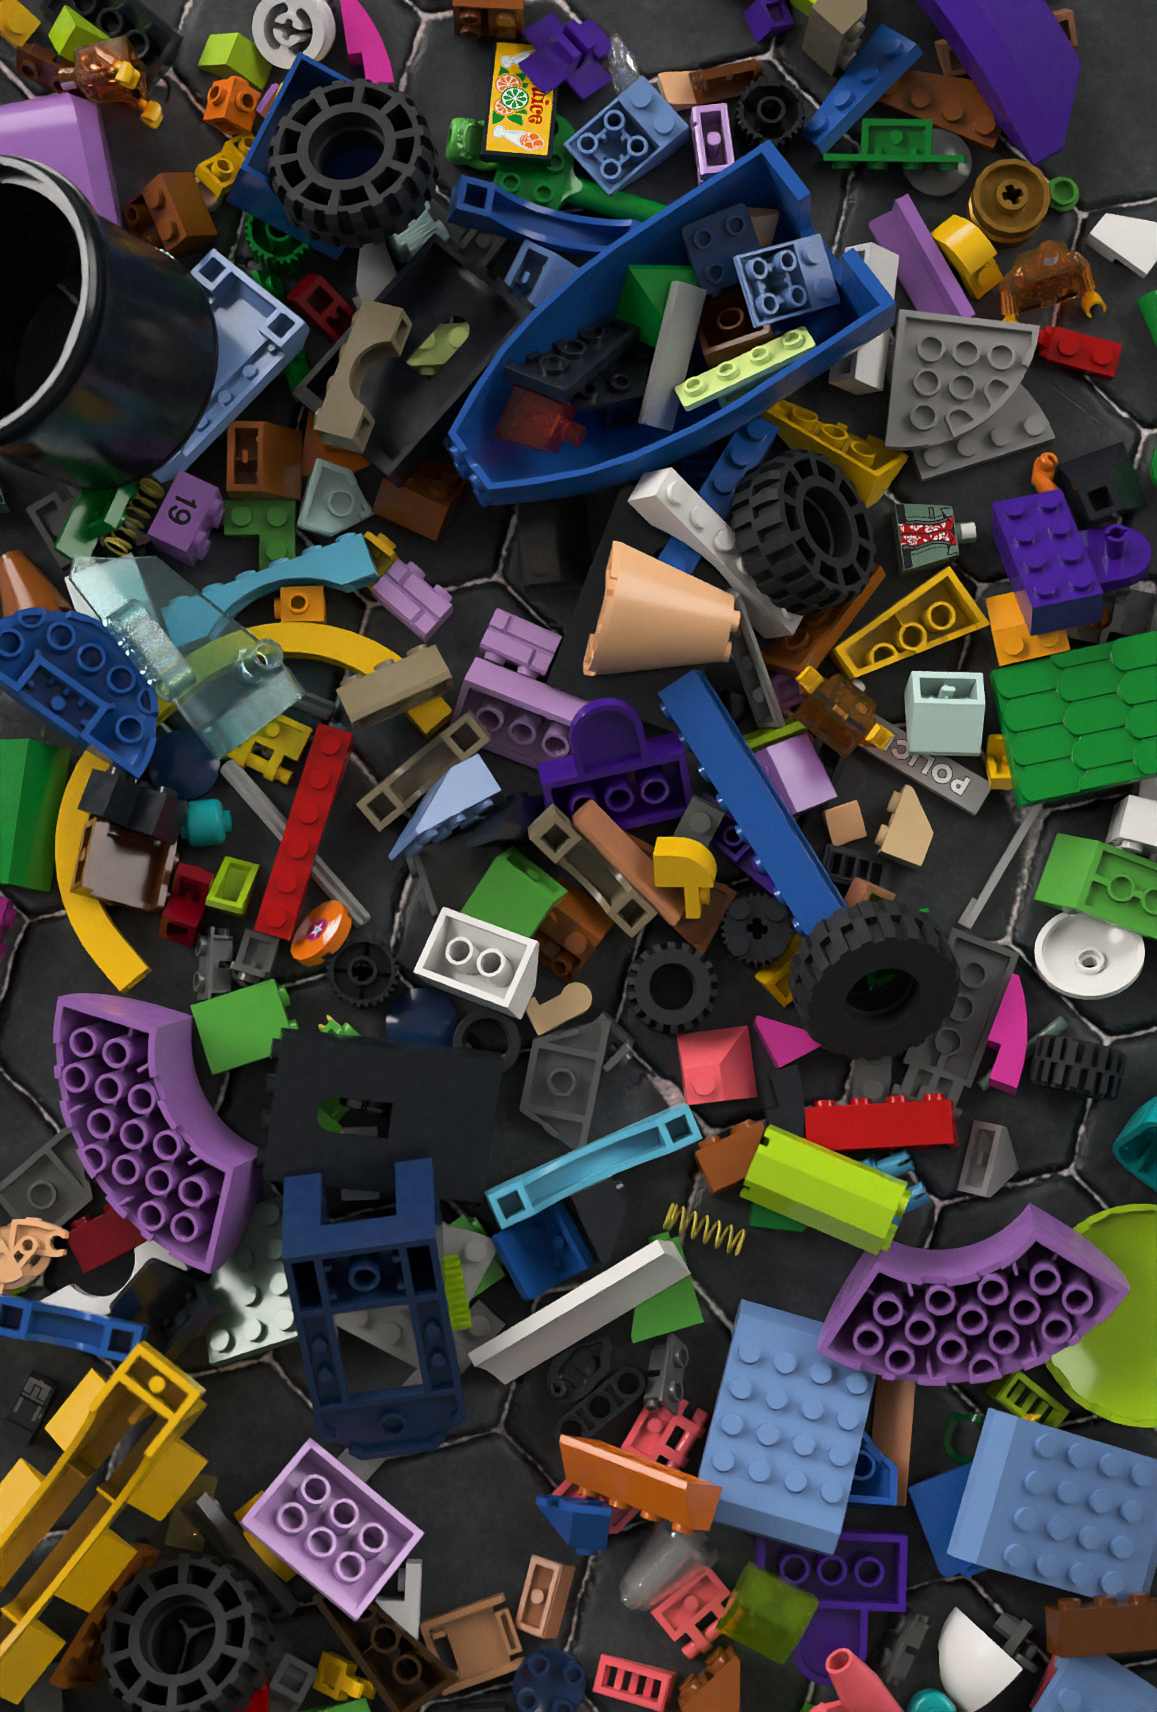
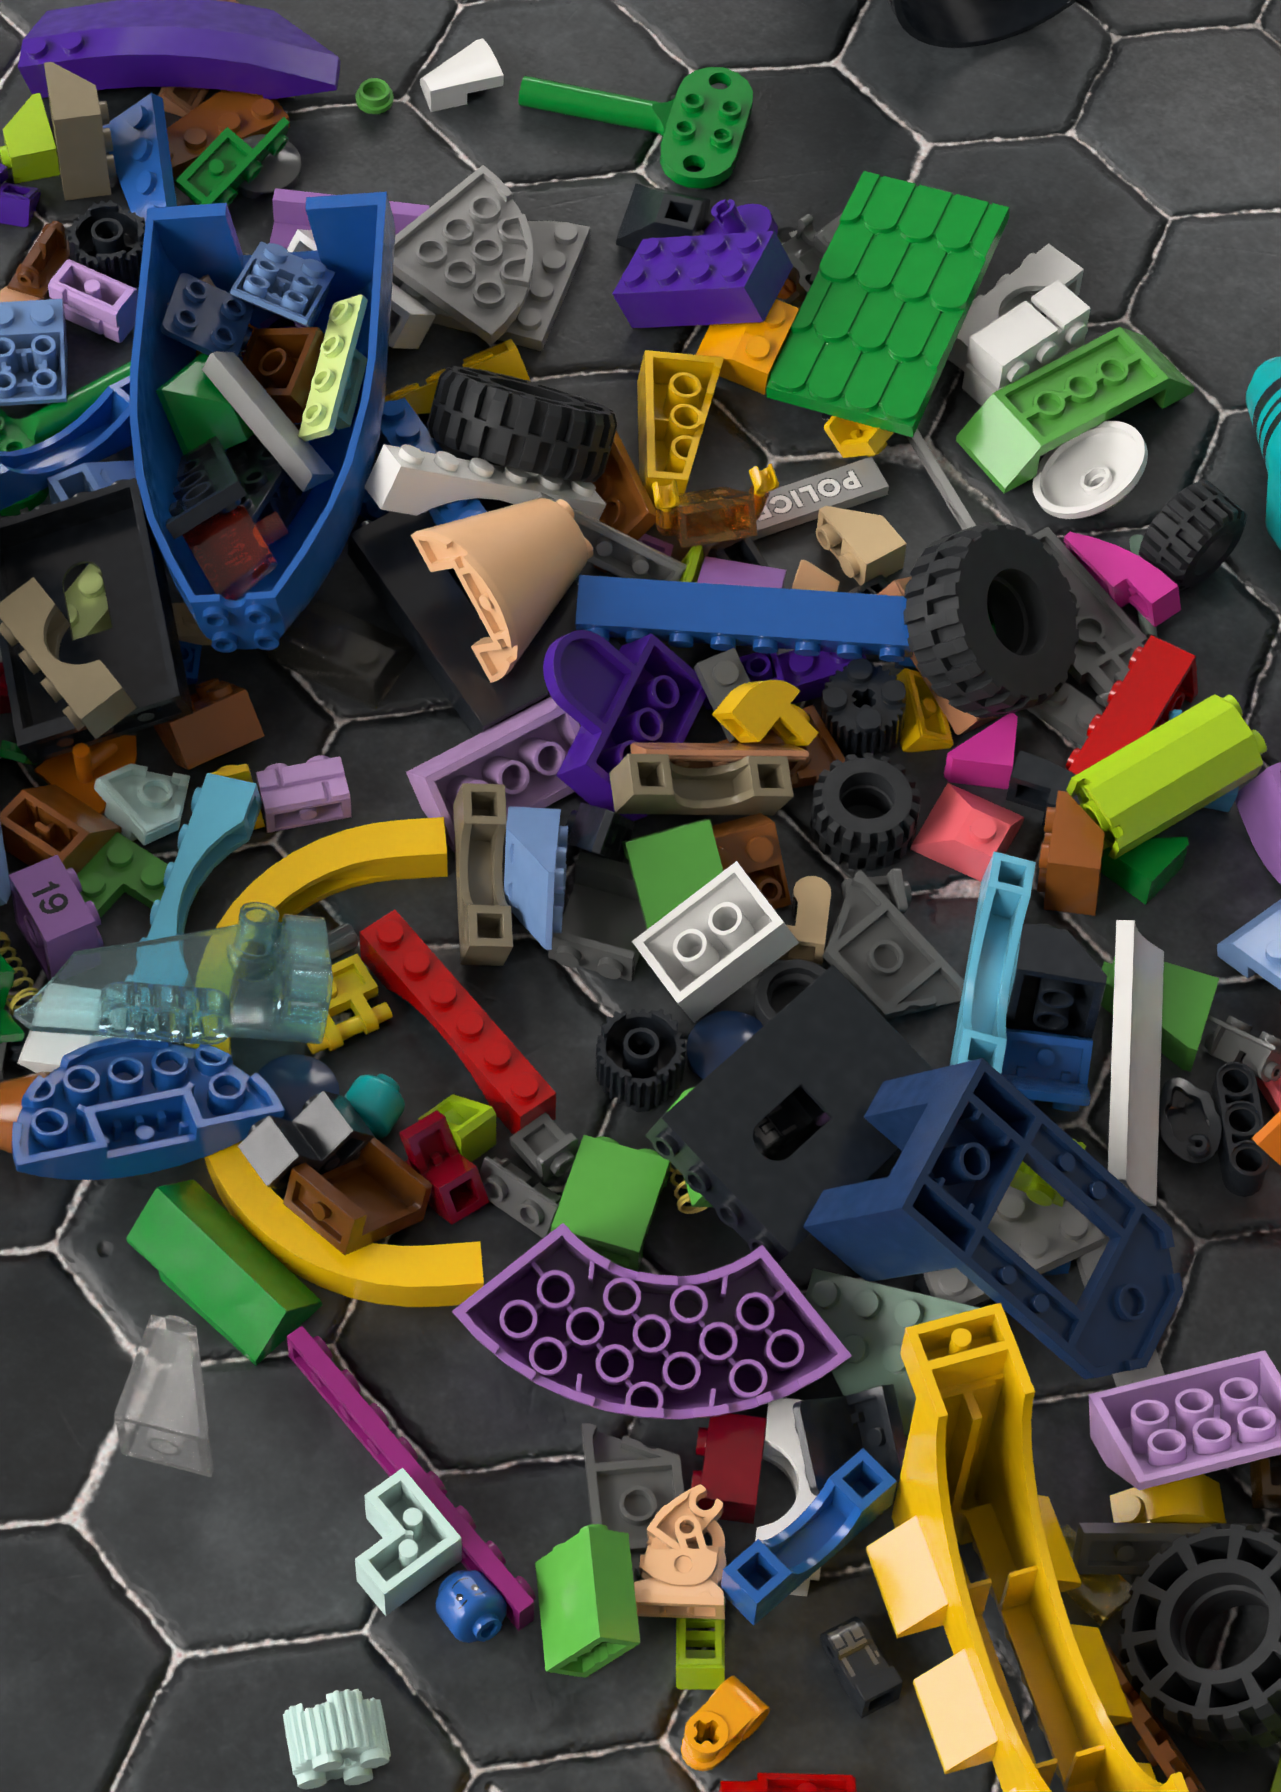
camera: 50 degrees left, 25 degrees down
(277, 823) = (436, 1048): light grey axle -> none
(301, 604) = (224, 884): light orange brick -> none
(321, 933) = (572, 1064): orange tile -> none
(395, 687) = (384, 835): dark tan slope -> none
(520, 645) = (423, 731): lavender brick -> none
(673, 1214) = (1093, 951): light yellow piece -> none
(927, 536) = (597, 365): torso -> none
(944, 713) = (778, 433): light aqua slope -> none
(969, 253) = (367, 173): yellow brick -> none
(988, 1160) = (1226, 670): light grey slope -> none
(1009, 202) = (350, 131): pearl gold wheel -> none
(1044, 472) = (611, 254): orange arm -> none
(1047, 278) = (444, 140): clear orange torso -> none
(1078, 352) = (533, 166): red hinge -> none

